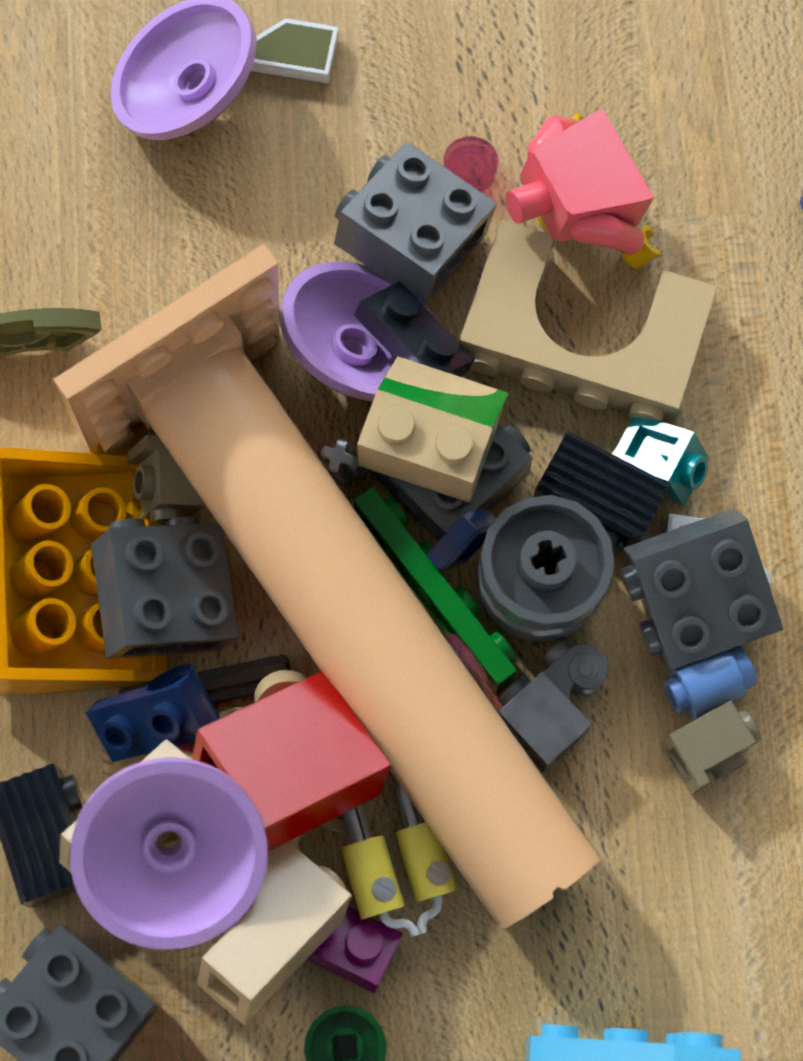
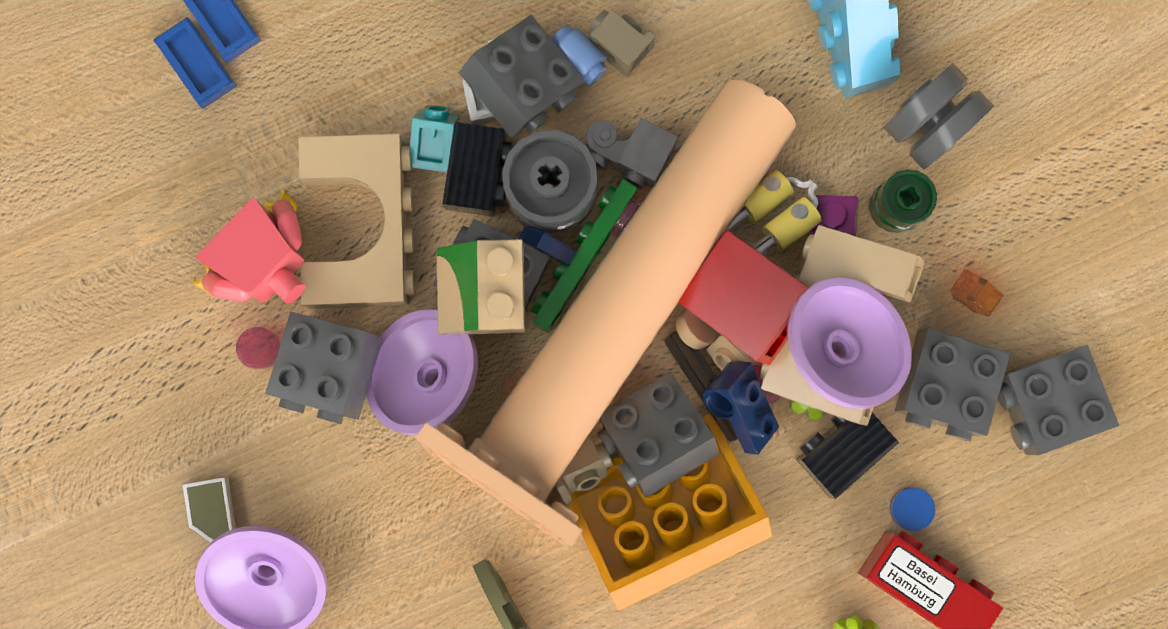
camera: 115 degrees left, 10 degrees up
(343, 462) = (523, 346): flat silver axle -> none
(412, 331) = (410, 335): black plate -> none

